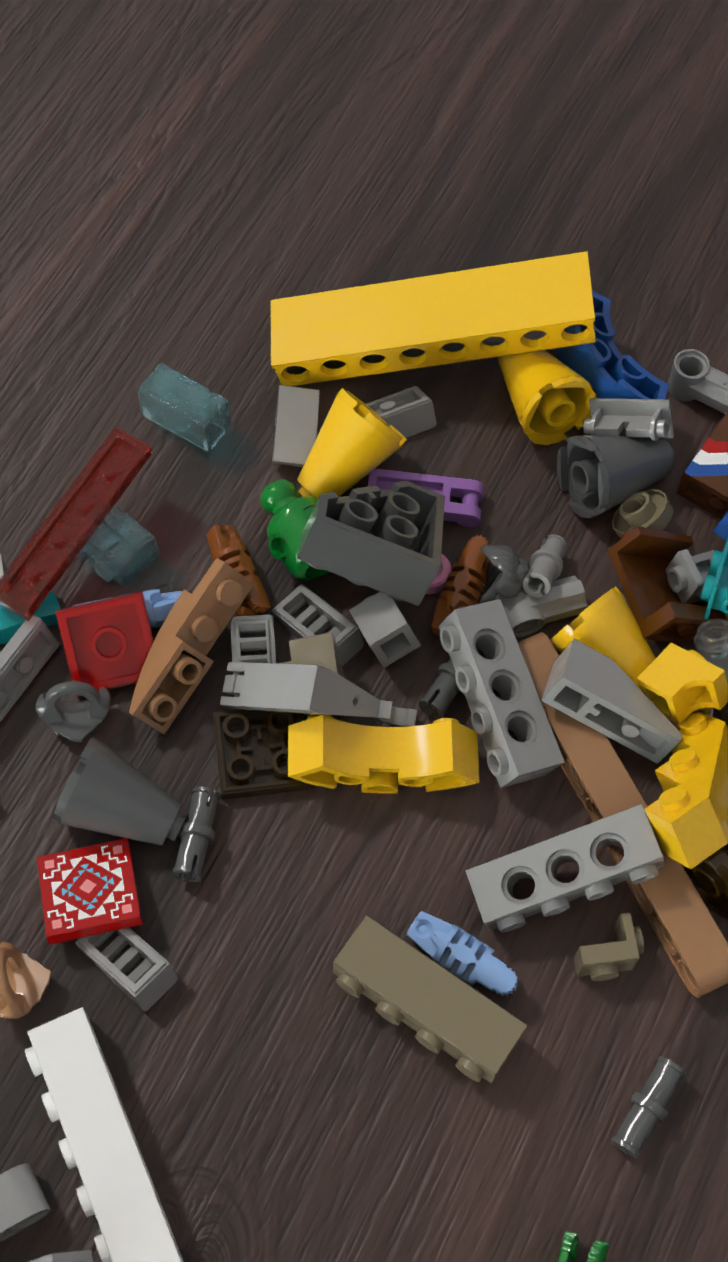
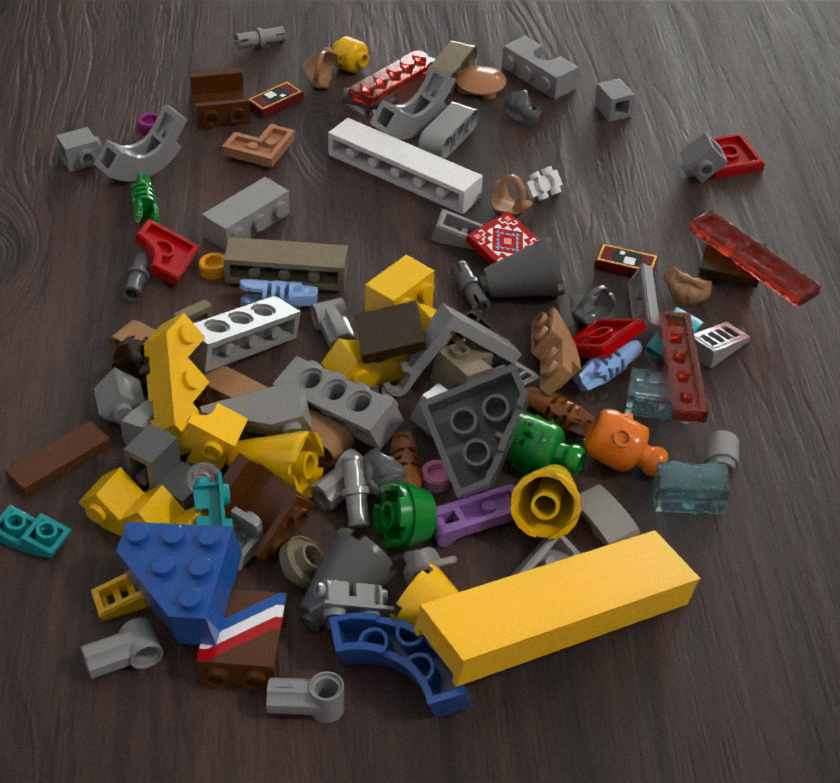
camera: 150 degrees right, 20 degrees down
(122, 417) = (723, 449): none -> light grey brick
(216, 483) = (622, 443): none -> orange piece
(324, 819) = (399, 284): none -> yellow brick
(387, 734) = (390, 332): none -> dark brown tile
(418, 866) = (332, 320): none -> light grey piece
(424, 1165) = (246, 212): none -> light grey brick
(510, 506) = (405, 515): none -> green cone
(521, 1084) = (212, 266): none -> light orange tile
(533, 459) = (420, 559): none -> light grey piece
(583, 1134) = (167, 251): none -> red tile

